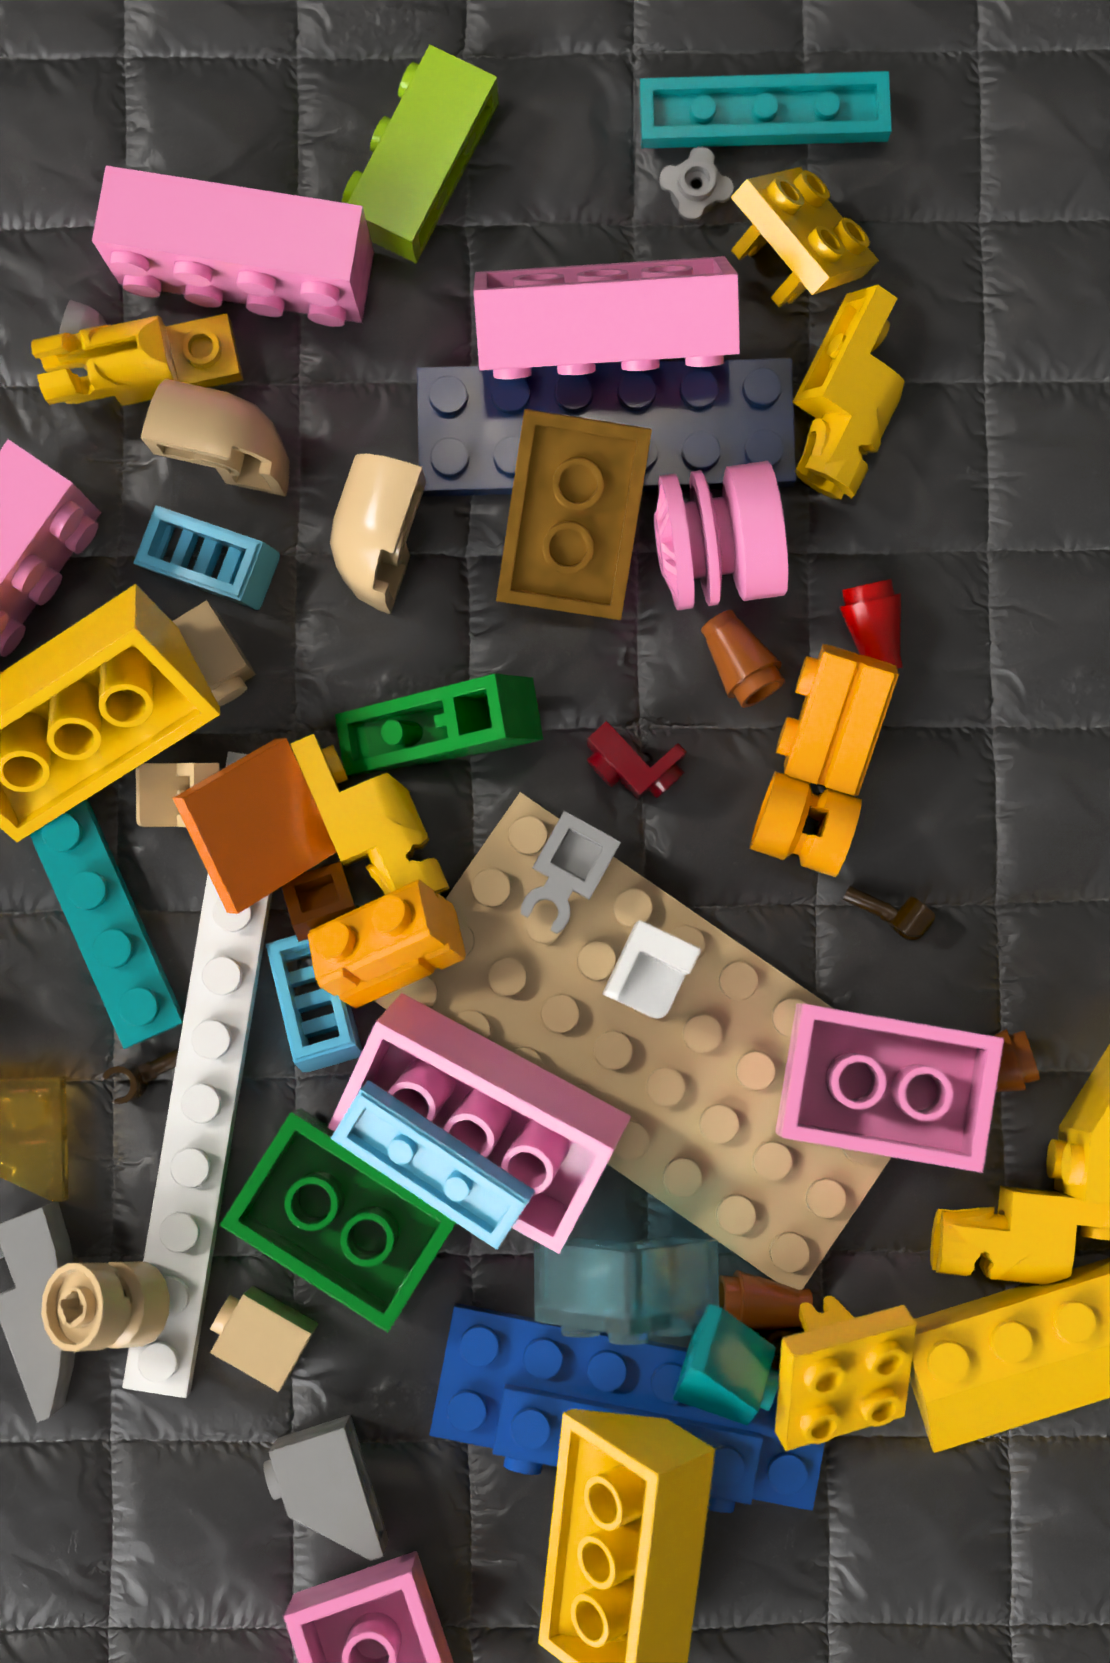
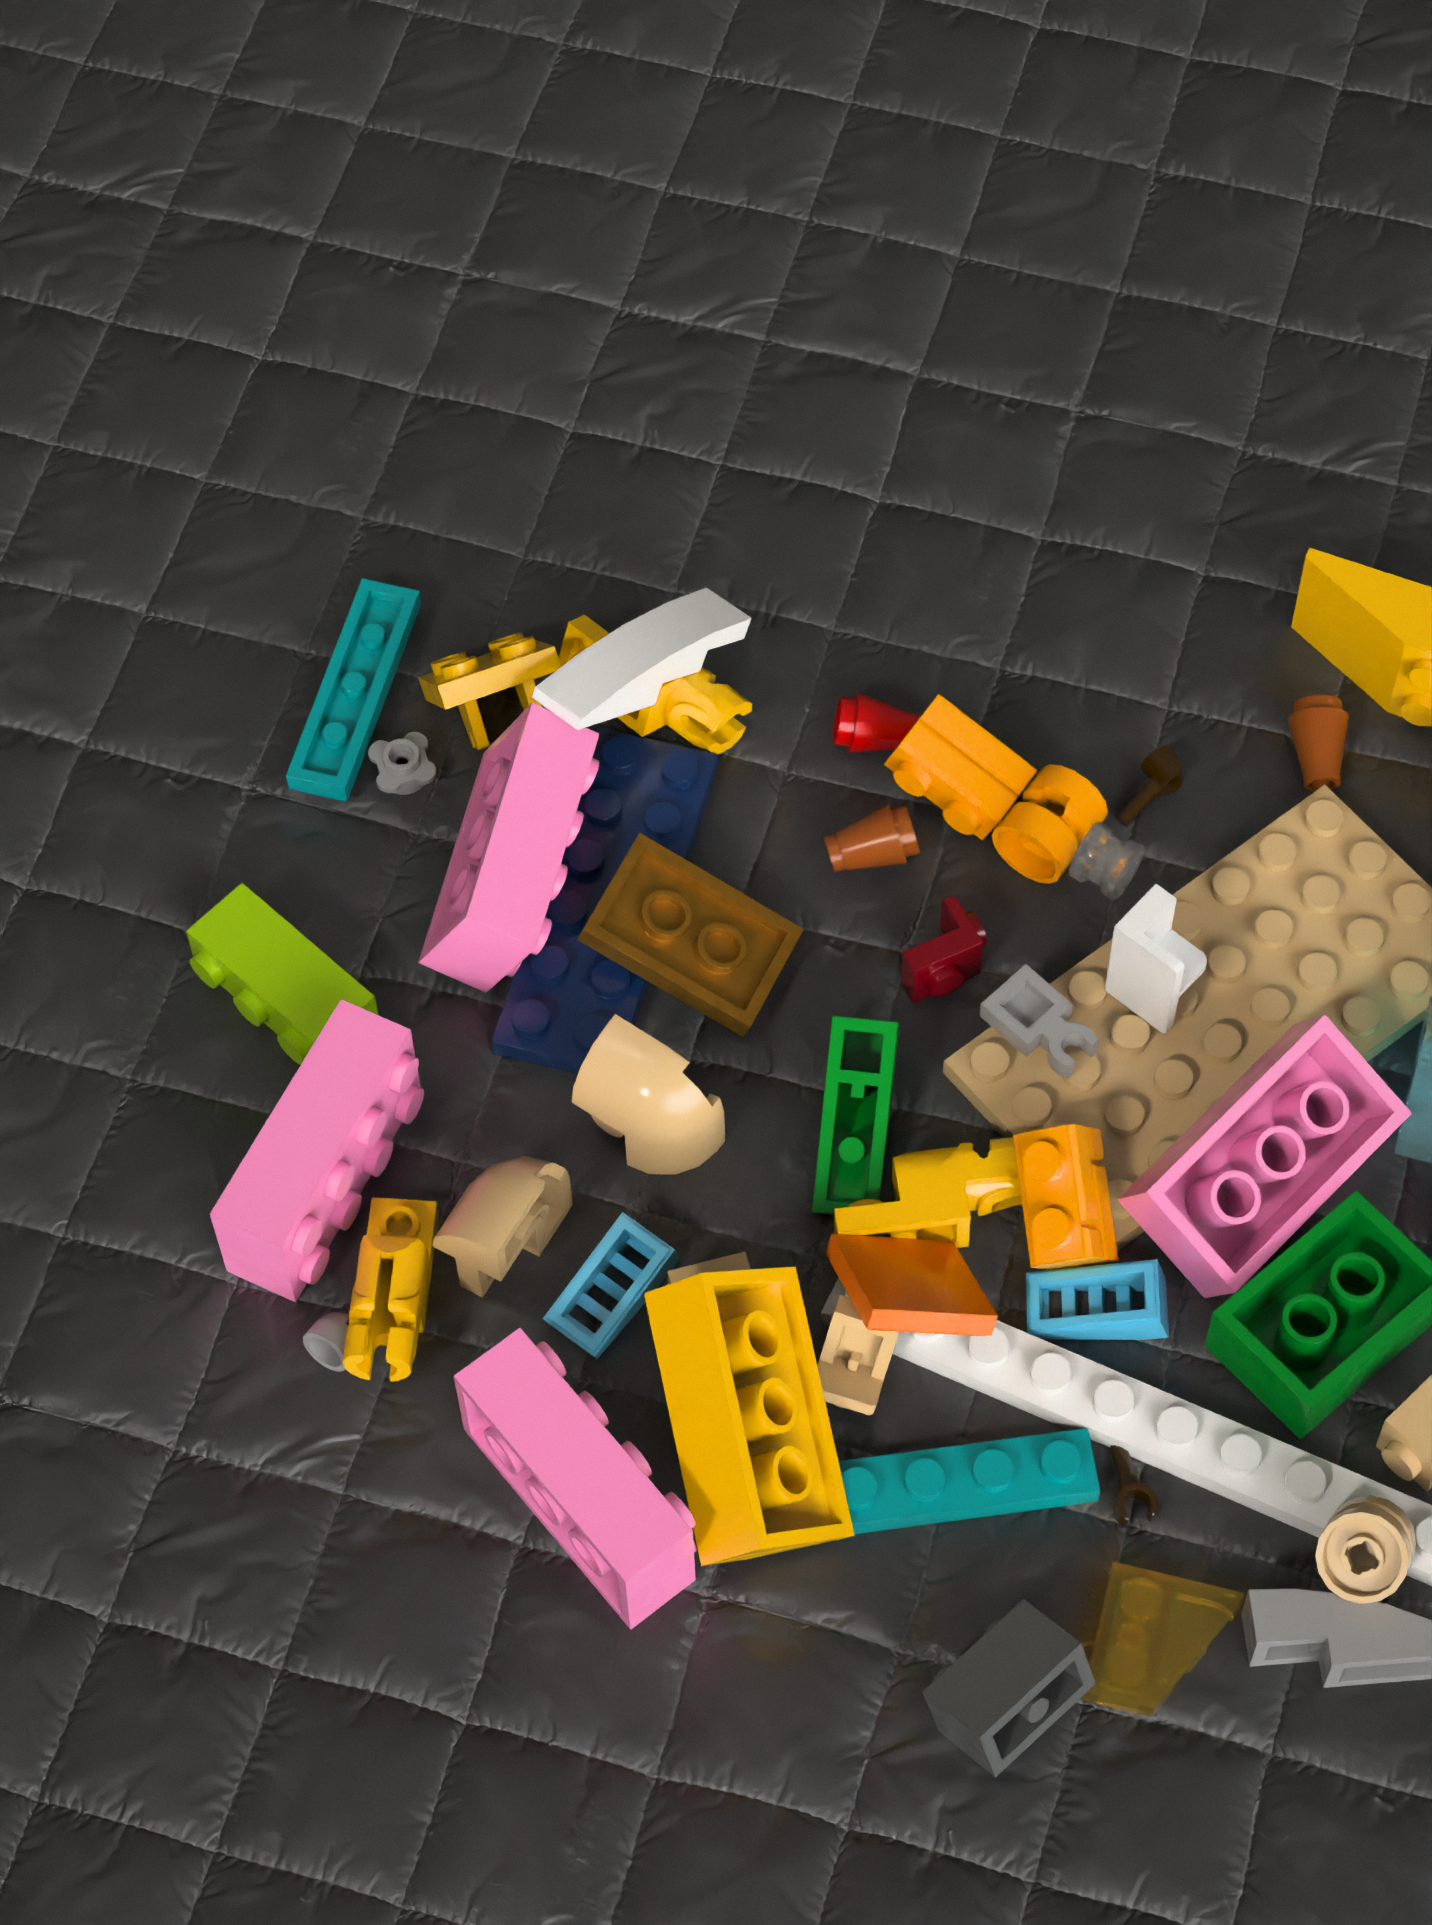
camera: 75 degrees left, 25 degrees down
(317, 898) = (1001, 1261): reddish brown plate -> none
(432, 1164) = (1297, 1193): medium azure tile -> none
(722, 535) = (757, 810): bright pink wheel -> none
(784, 889) = (1106, 861): none -> clear wheel
(847, 366) = (634, 660): none -> white slope
(889, 1087) = (1319, 801): bright pink brick -> none

